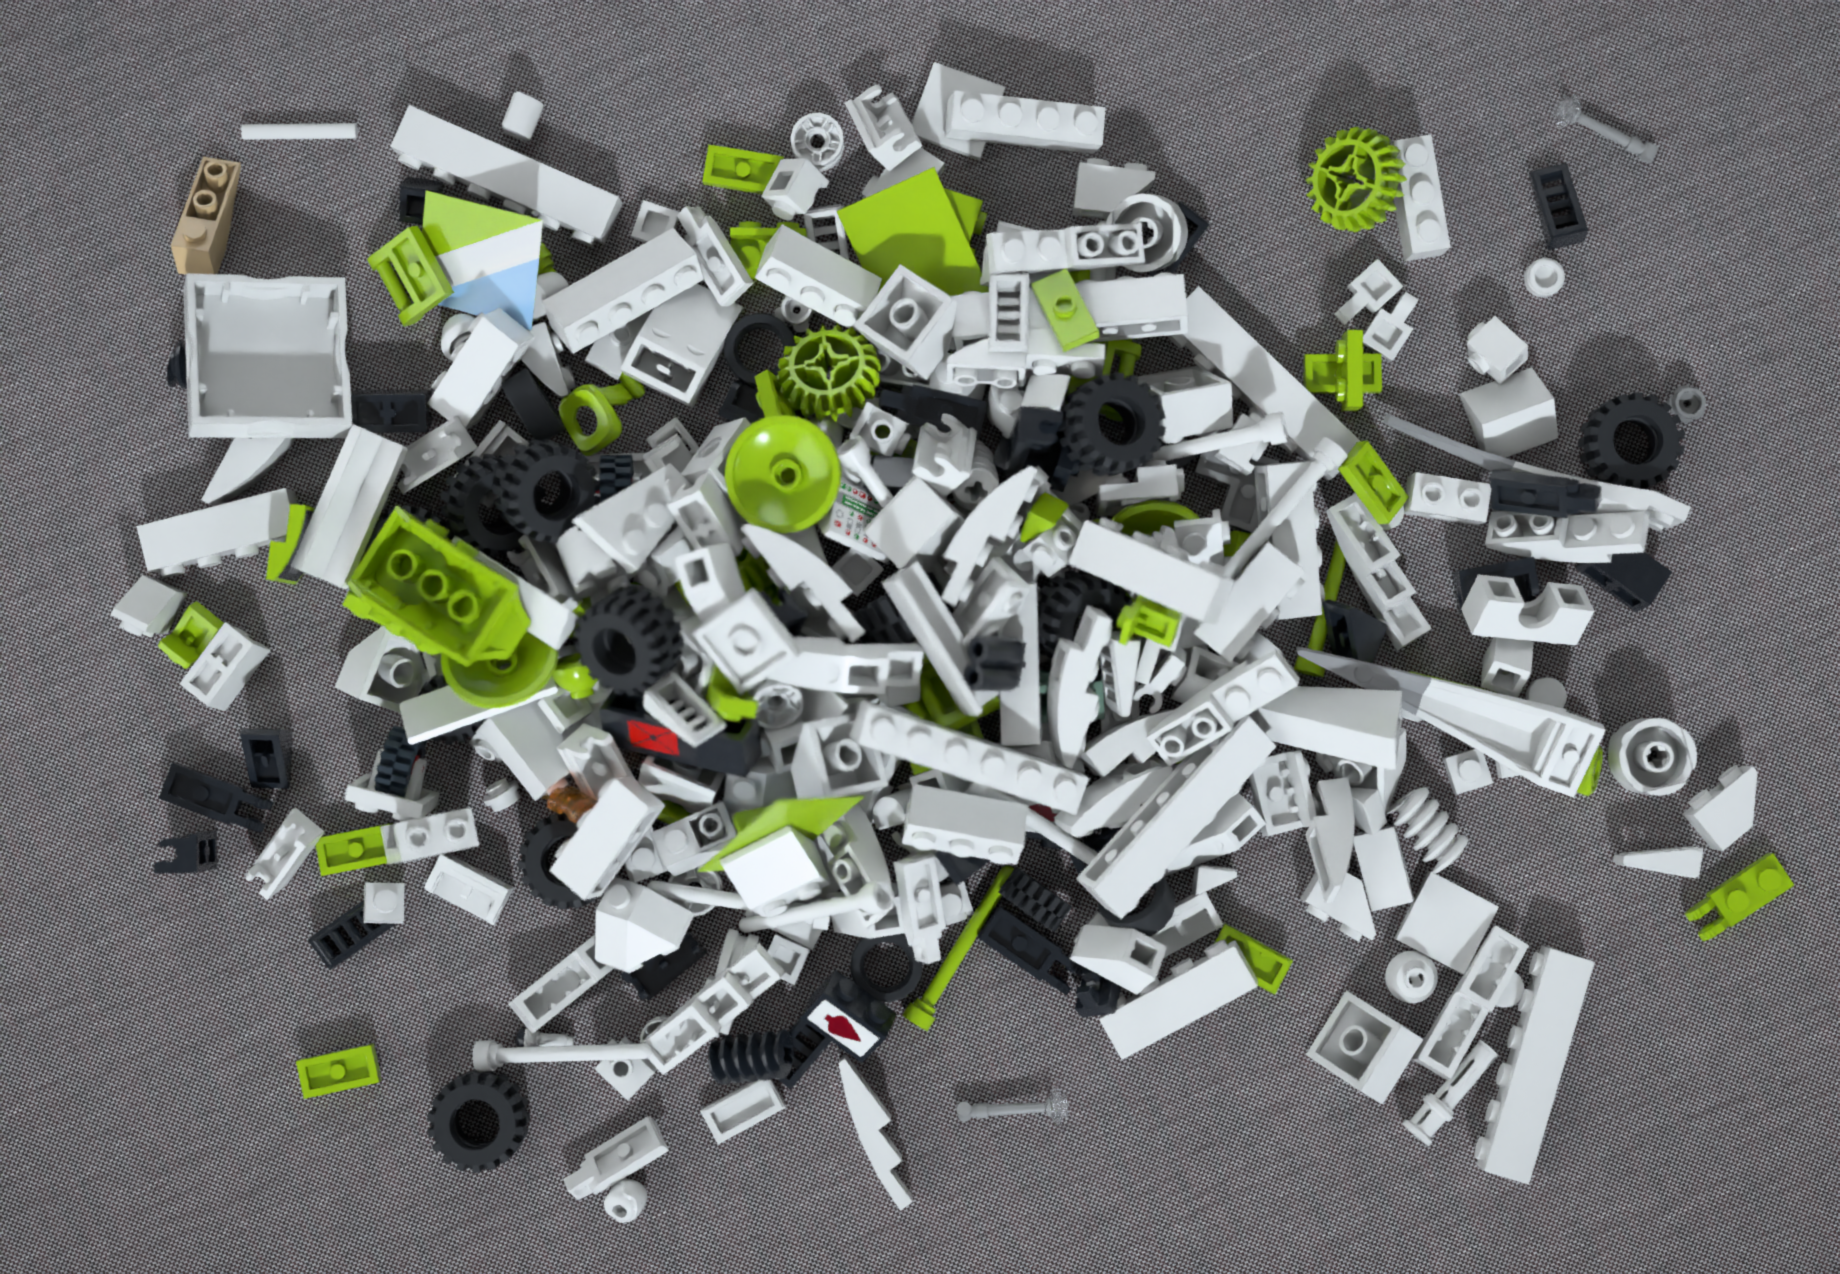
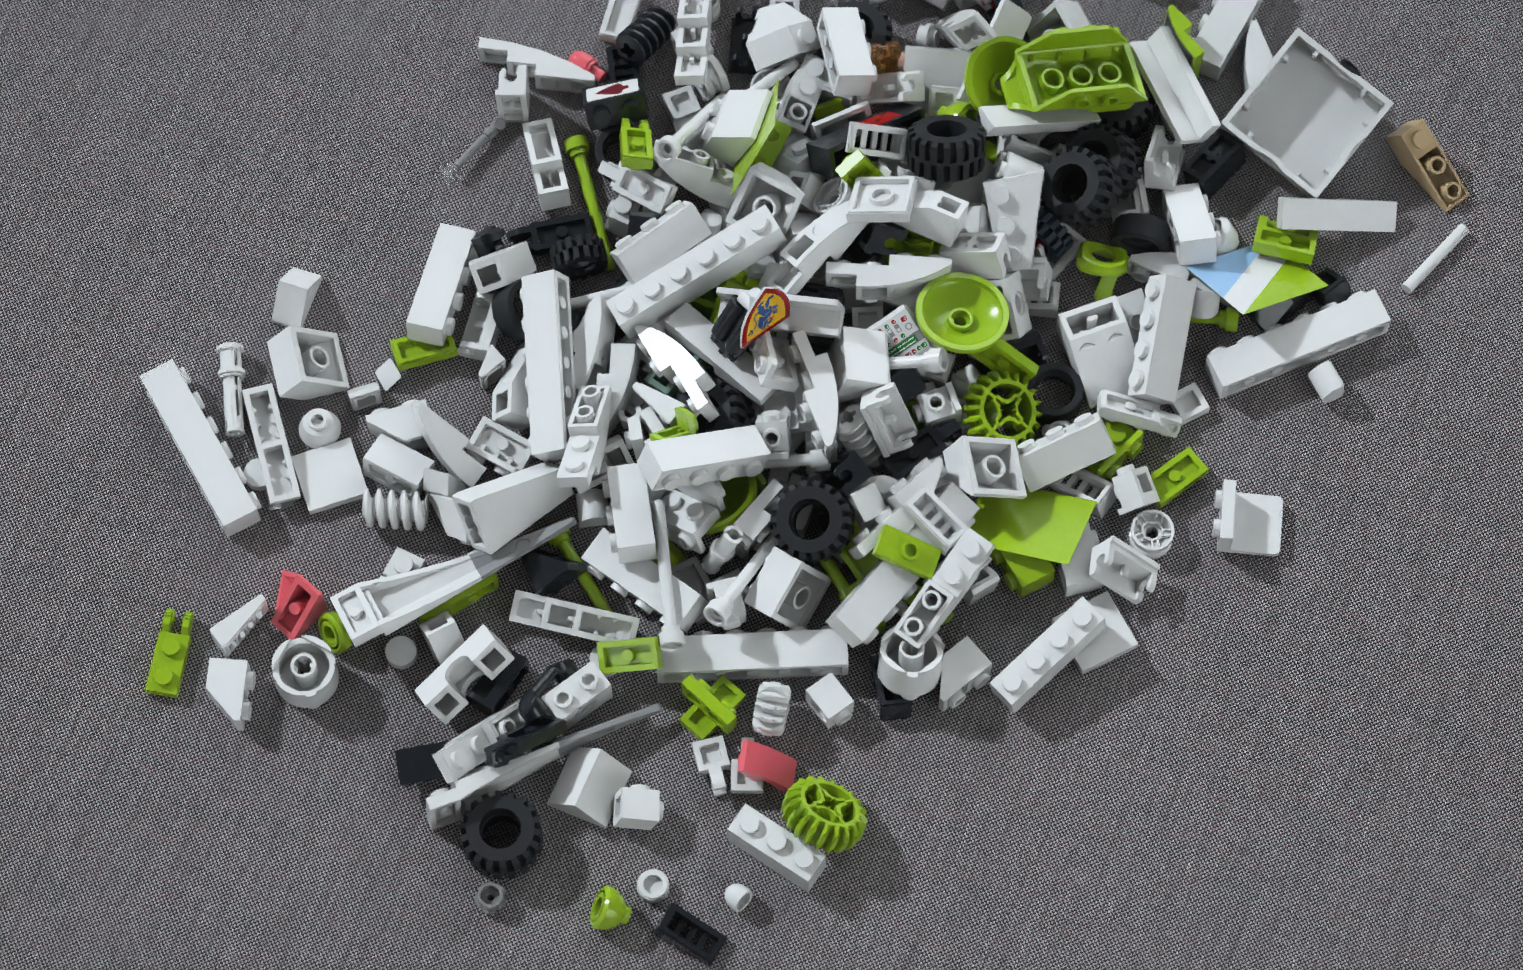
camera: 135 degrees right, 20 degrees down
(337, 243) = (1336, 214): none -> white slope
(476, 747) = (965, 29): none -> white slope
(726, 67) = (1247, 521): none -> white bracket
(829, 1087) = (589, 64): none -> coral cylinder
(886, 943) = (636, 146): none -> lime hinge
(933, 1115) = (513, 96): none -> white hinge
(963, 1026) = (546, 164): none -> white slope
(971, 639) = (765, 310): none -> shield
(1042, 516) = (797, 439): lime slope -> none
(1202, 491) = (722, 549): none -> white pin
(1241, 276) = (830, 701): none -> white brick
(1300, 316) = (771, 708): none -> white gear
(1303, 967) = (388, 374): none -> white sticker
(1307, 1127) = (295, 297): none -> white slope
(1342, 970) = (364, 396): none -> white slope
(1356, 271) = (767, 765): none -> coral slope
(1487, 196) = (738, 896): none -> white hinge
(1504, 521) = (530, 704): none -> black bar
(1592, 831) = (297, 605): none -> coral slope
(1605, 290) = (609, 909): none -> lime brick

